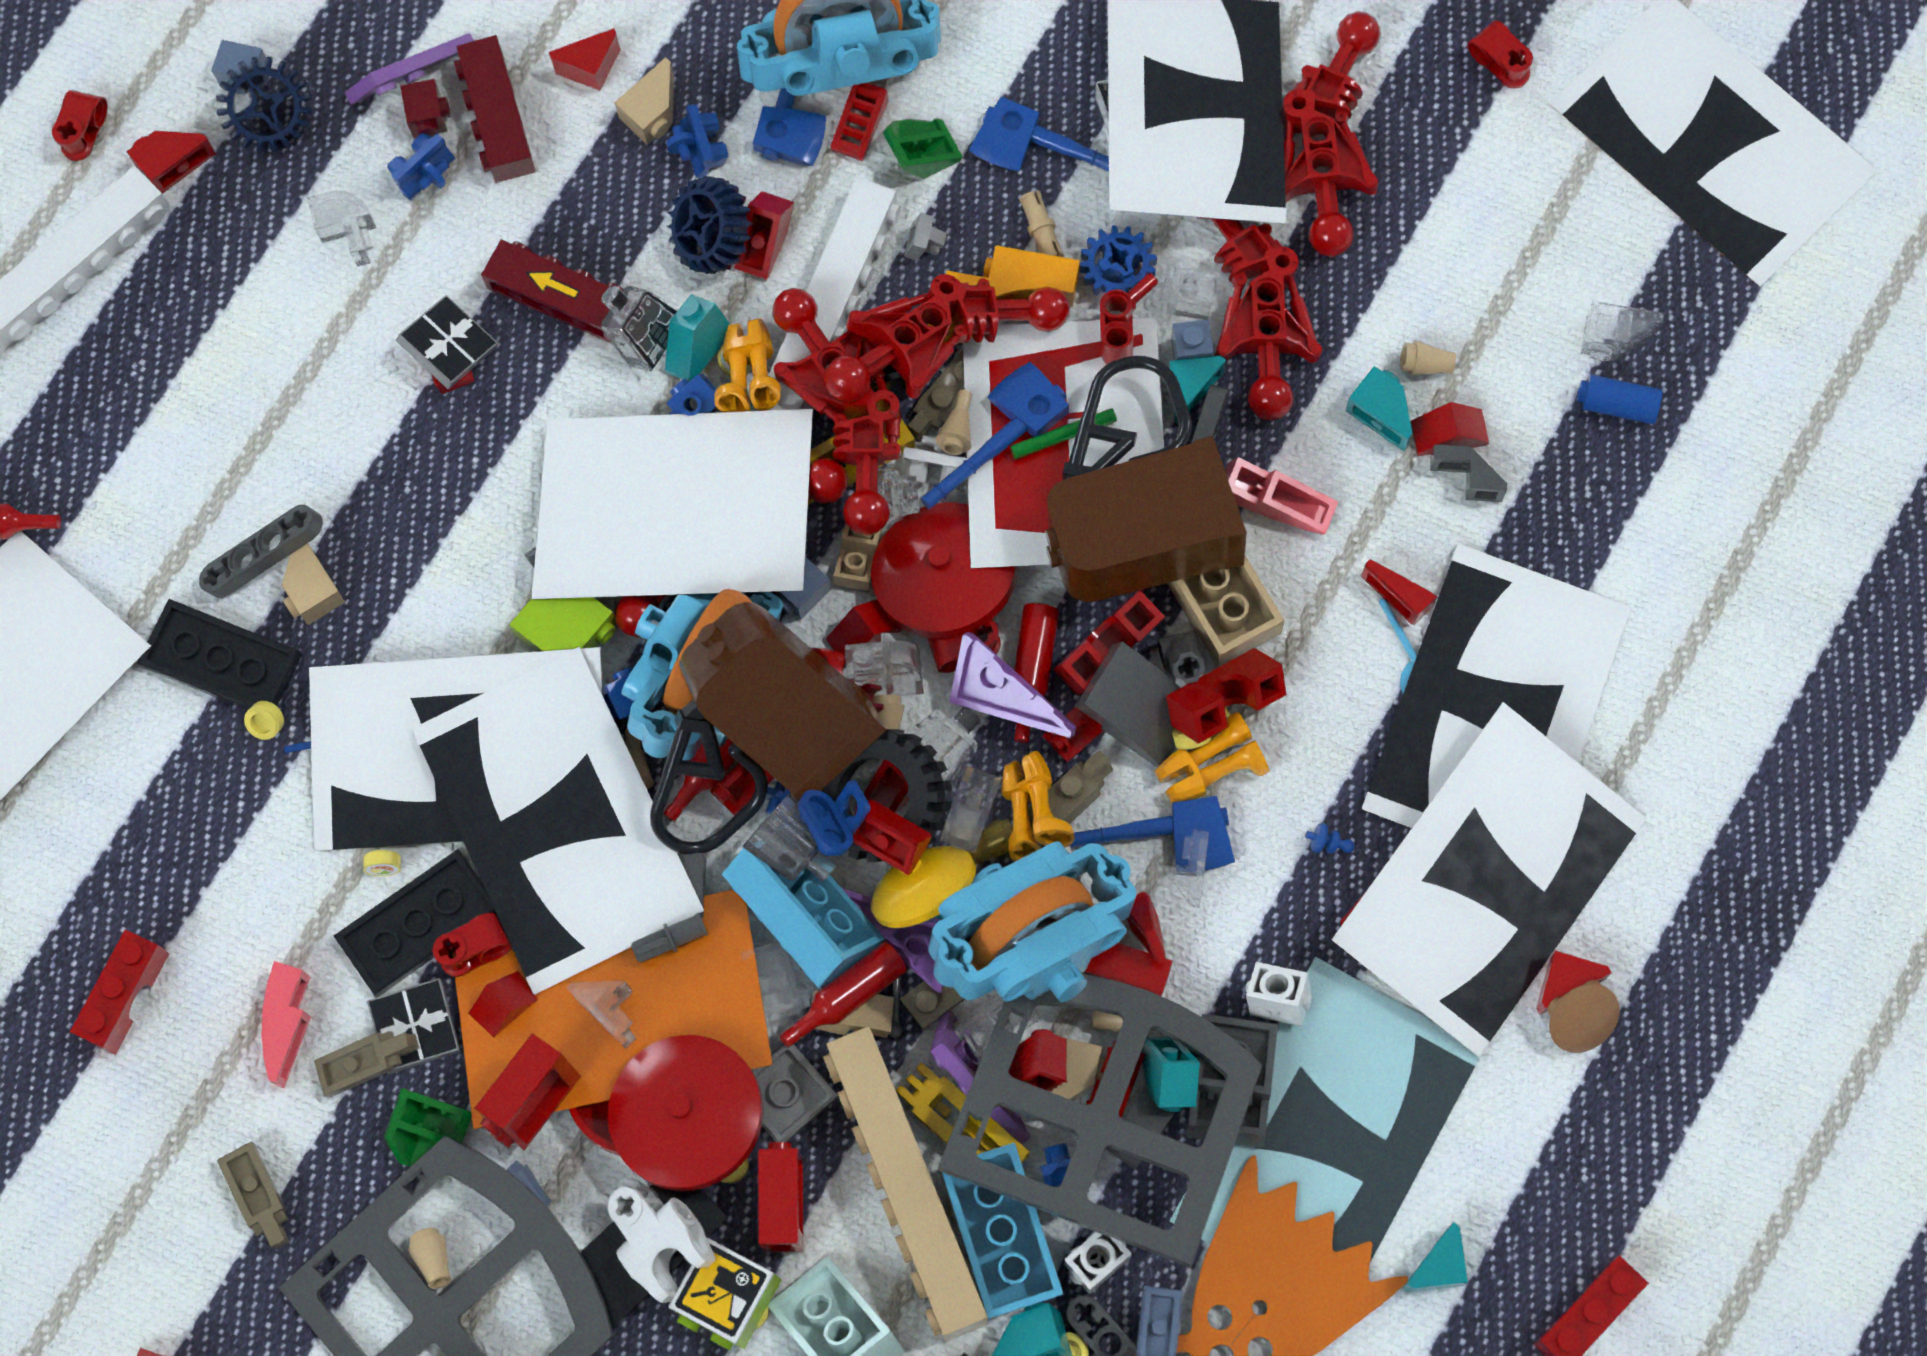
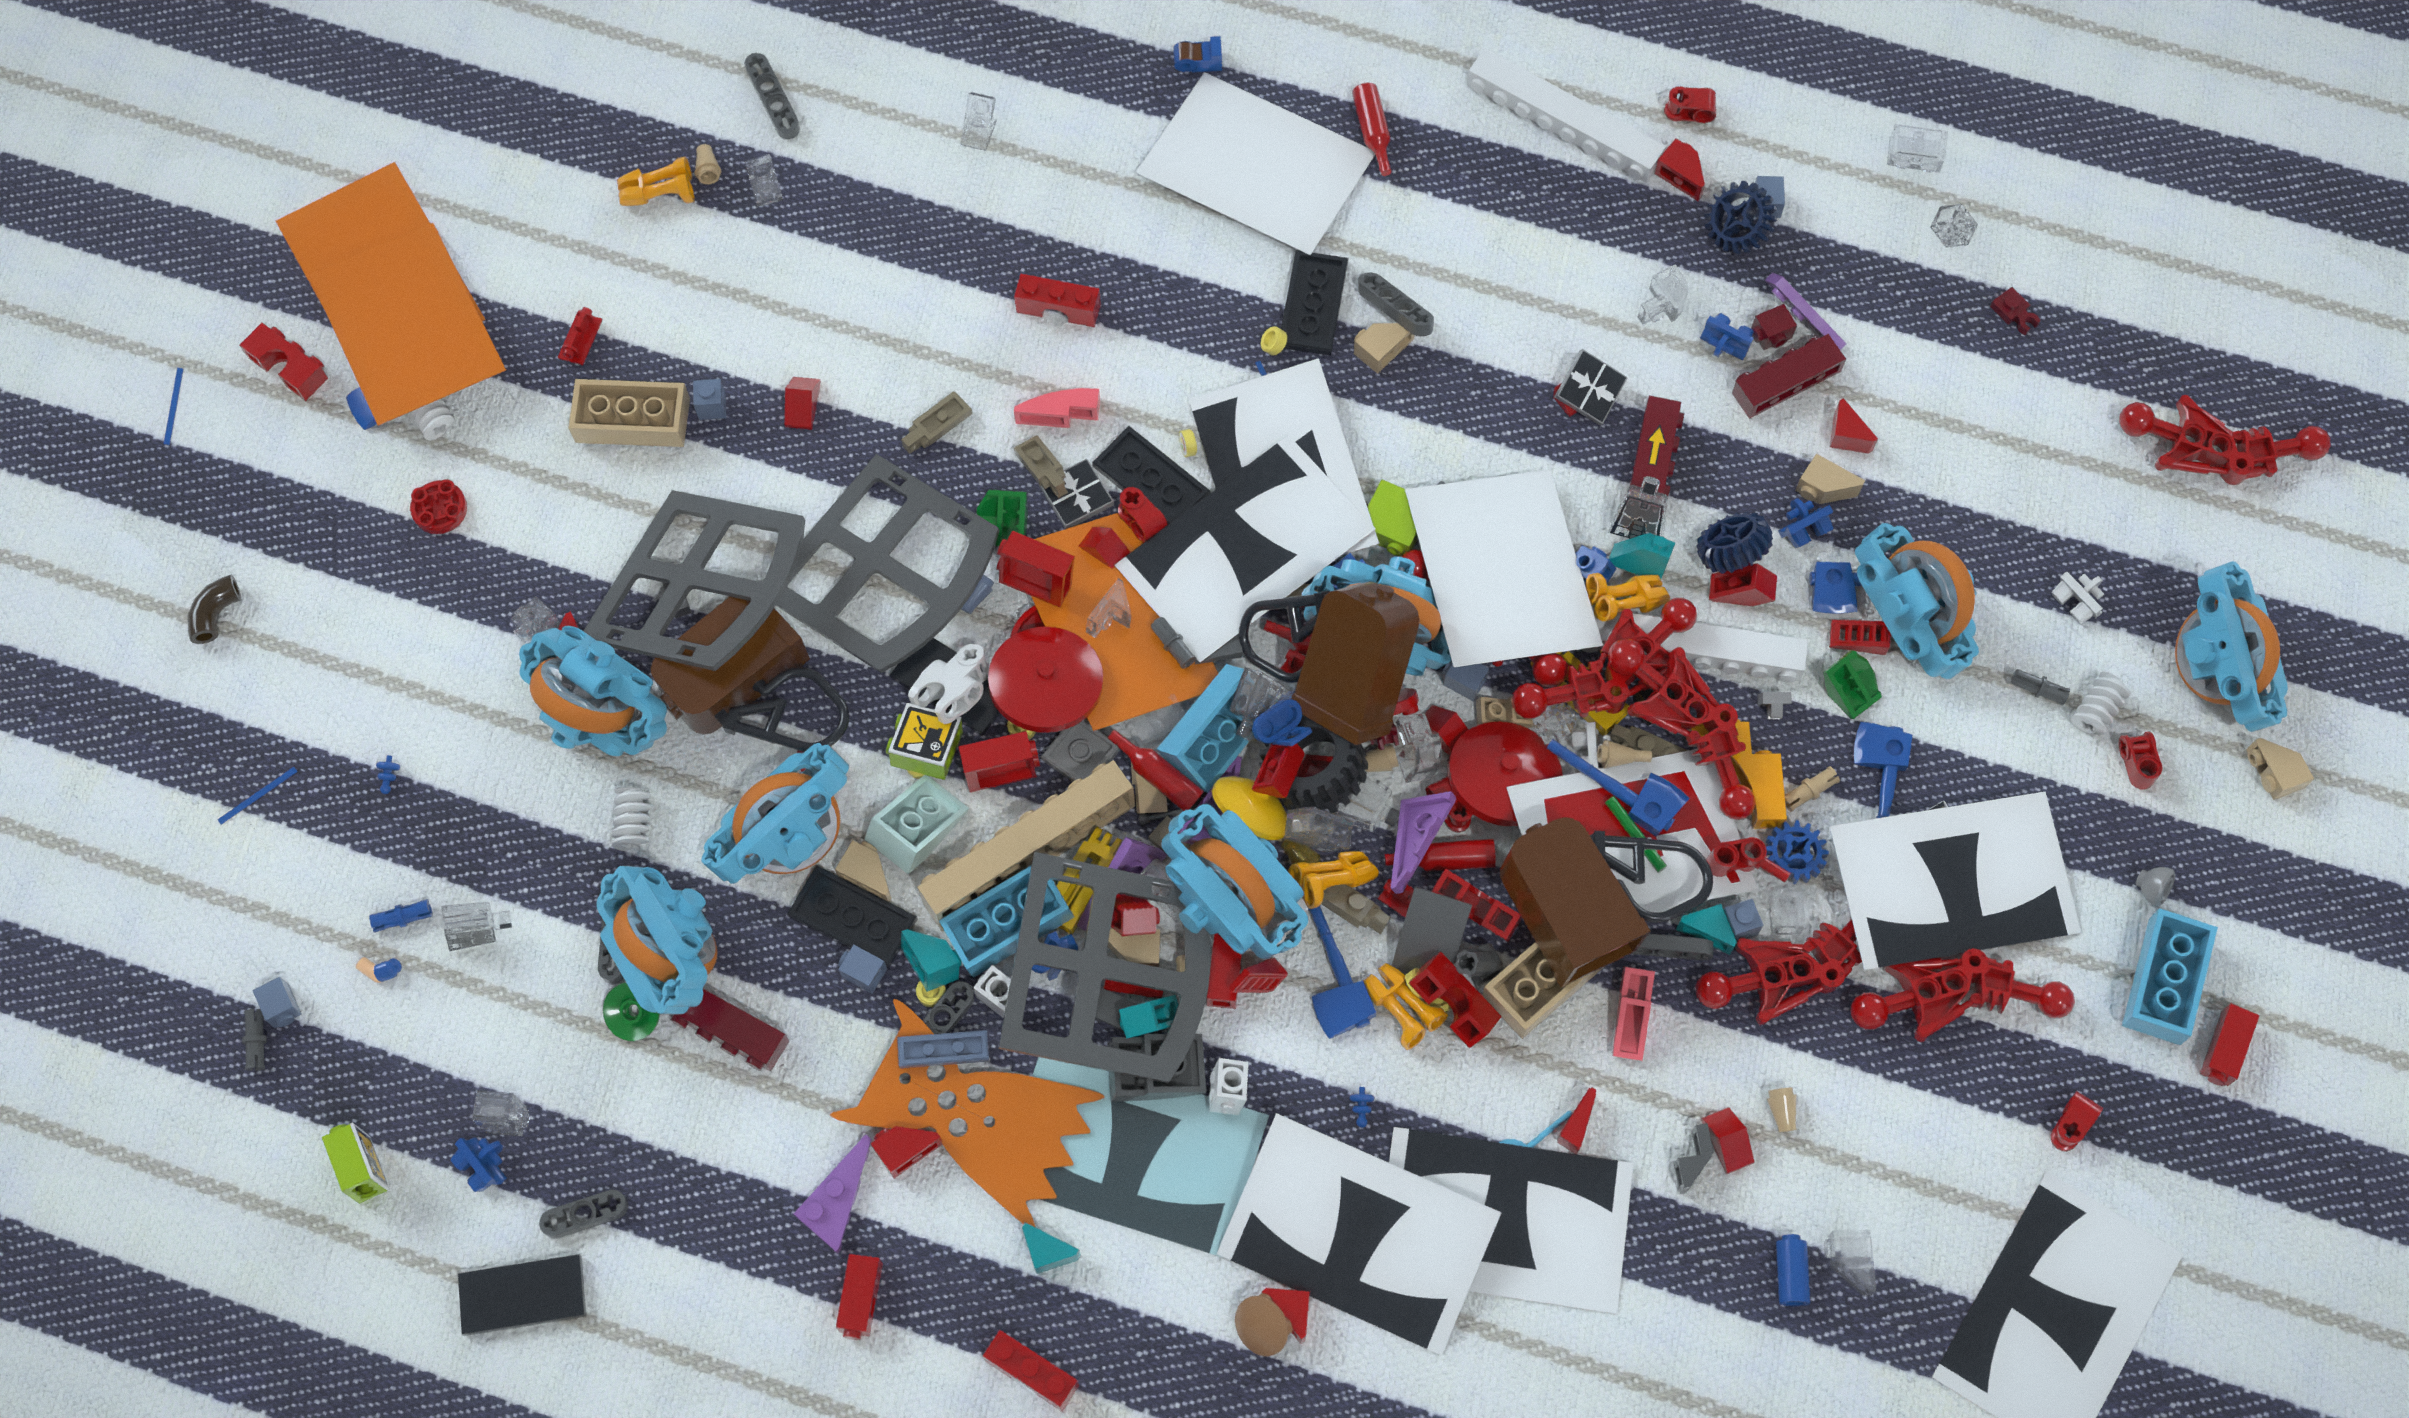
camera: 75 degrees right, 5 degrees down
(430, 1255) = (916, 542): tan cone -> none
(1190, 877) = (1305, 1003): clear slope -> none
(1382, 407) = (1733, 1079): teal slope -> none

